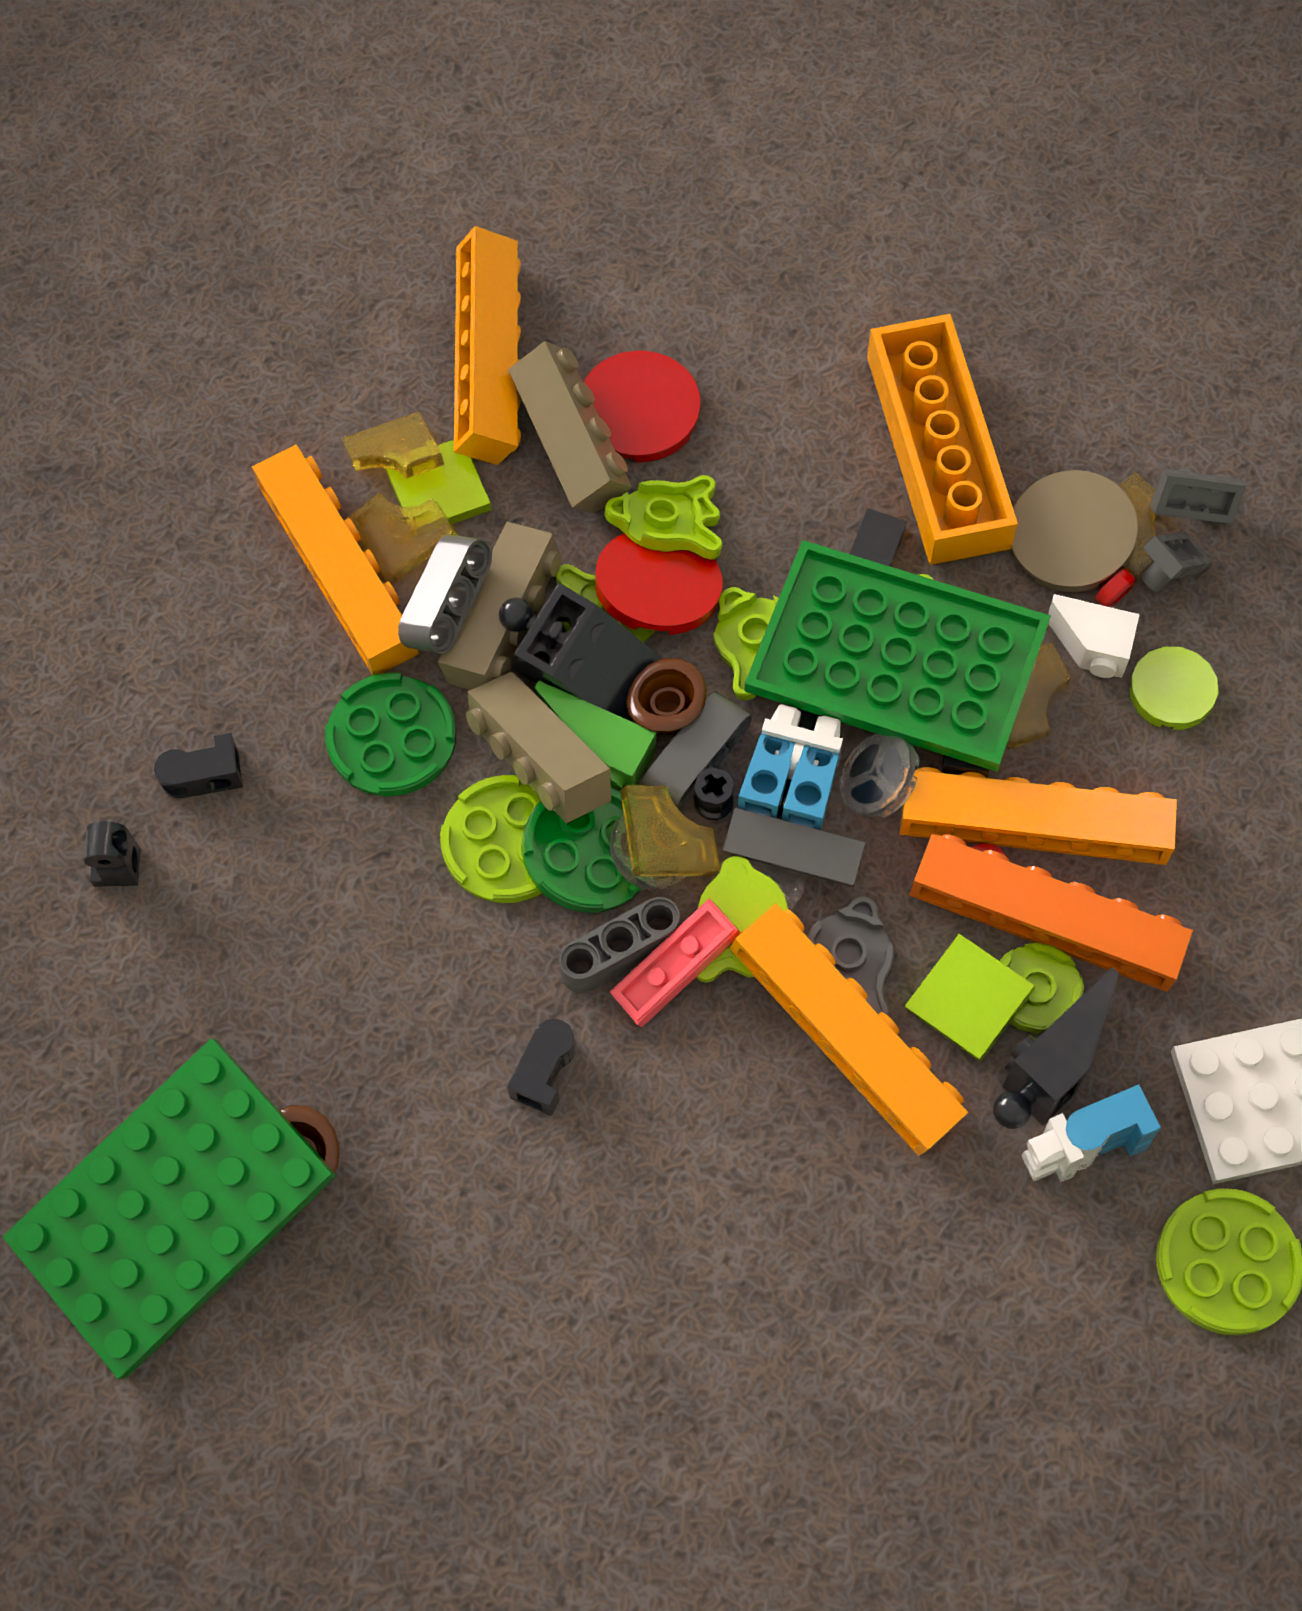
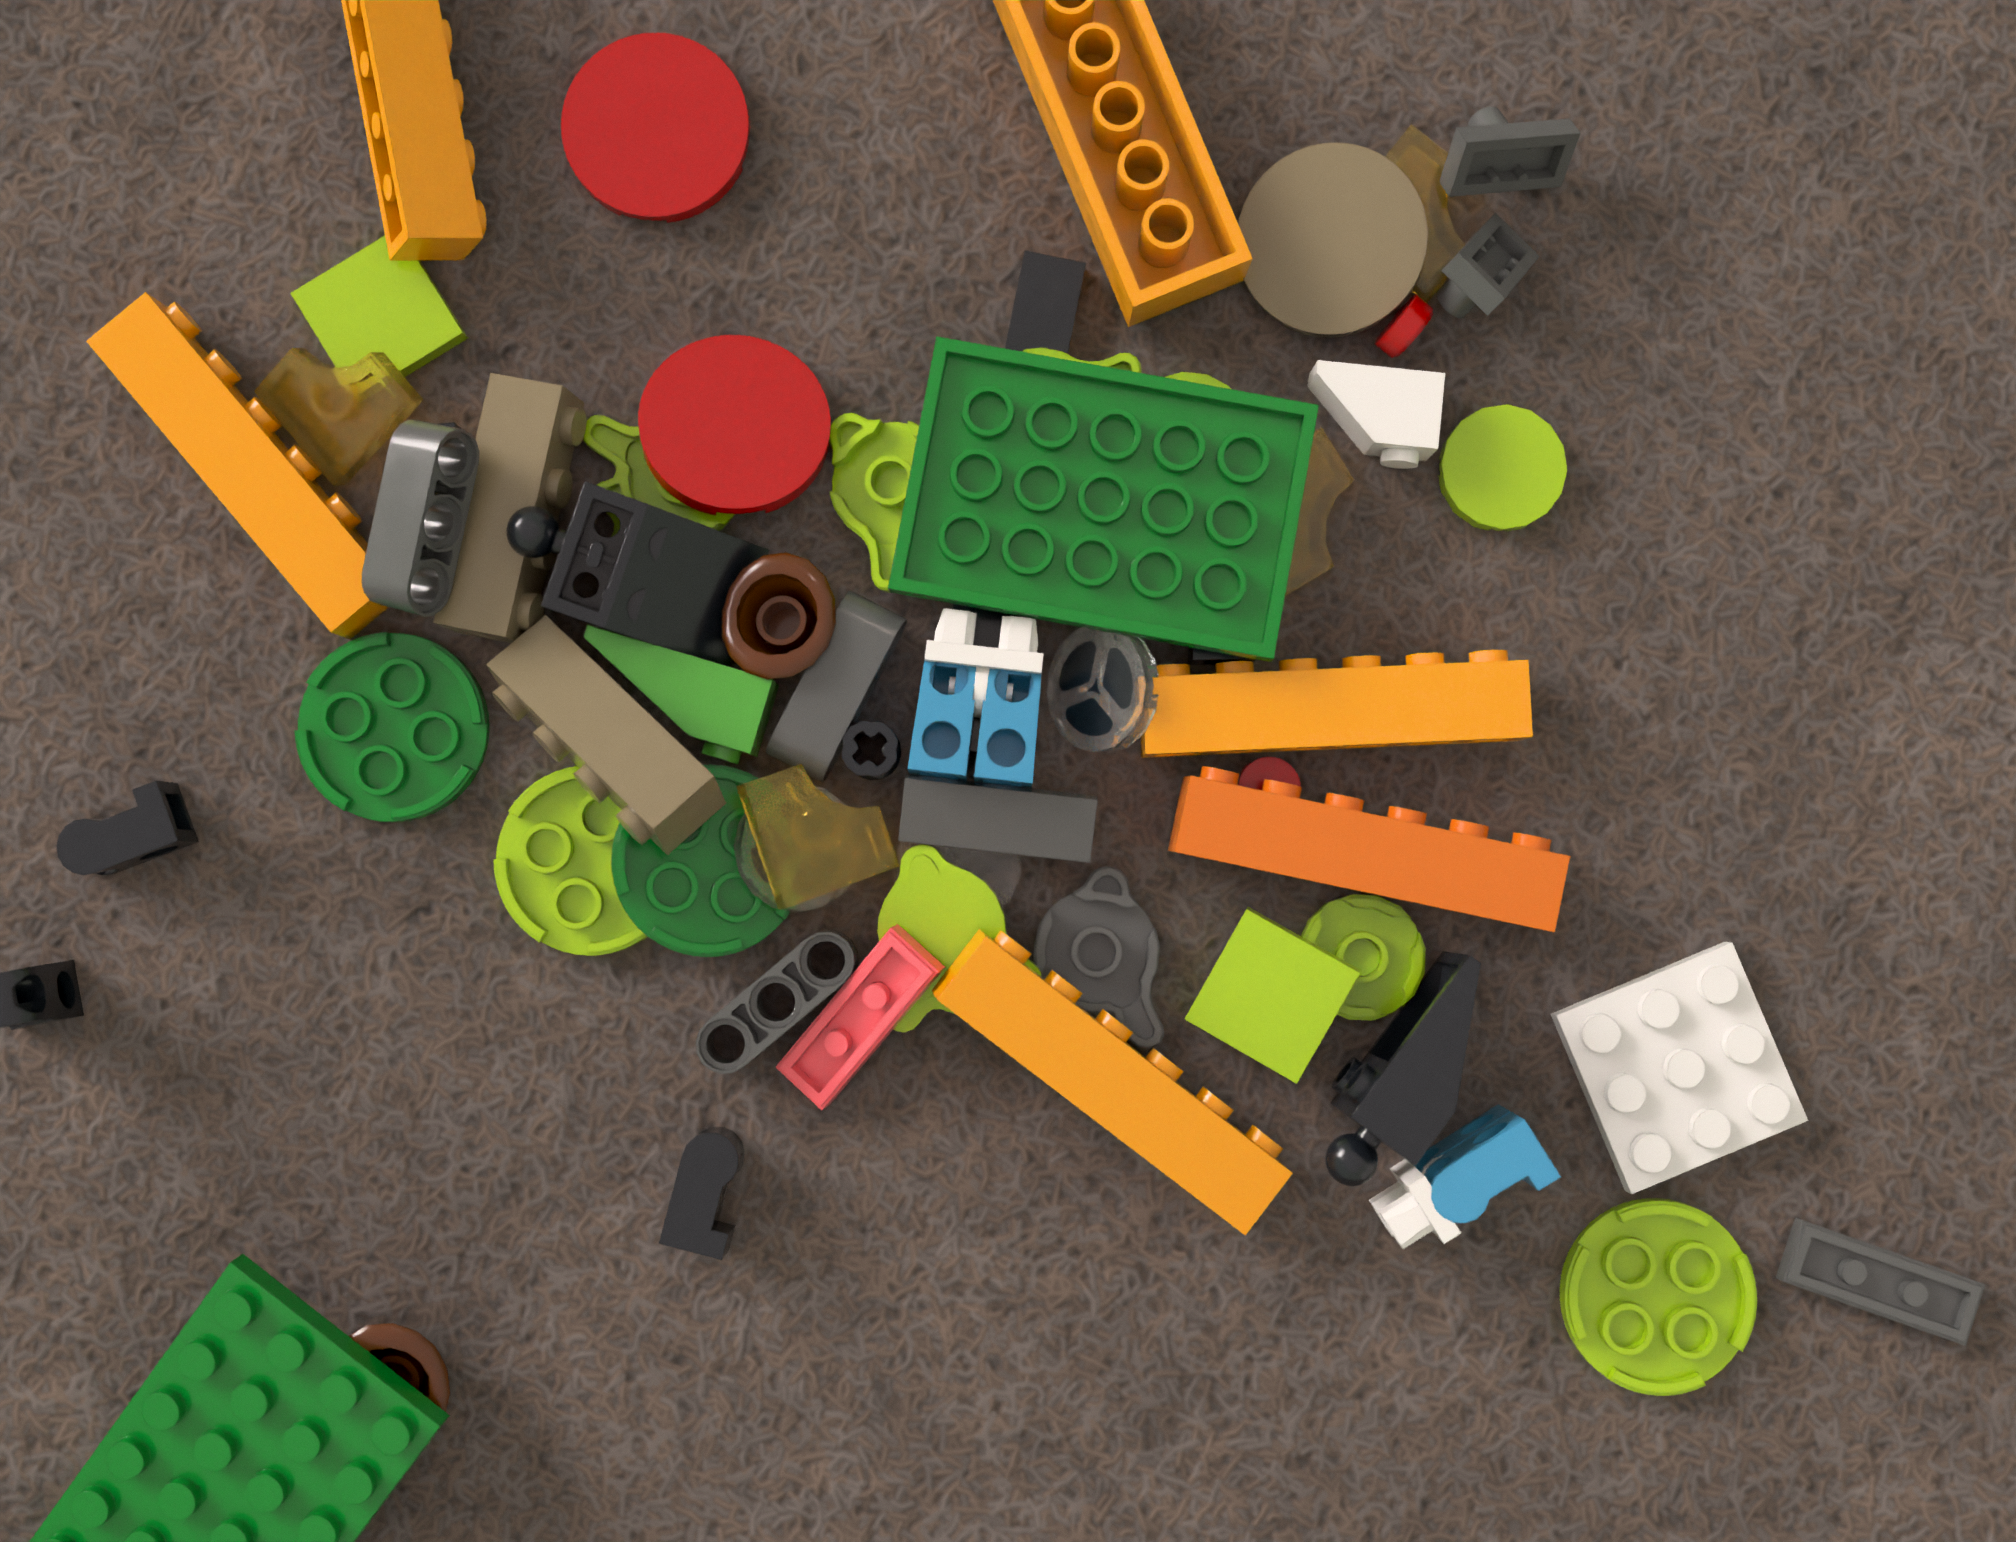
camera: 15 degrees left, 20 degrees up
(397, 445) = (300, 260): clear yellow tile -> none
(570, 427) = (555, 192): dark tan brick -> none
(669, 516) = (732, 313): lime tile -> none

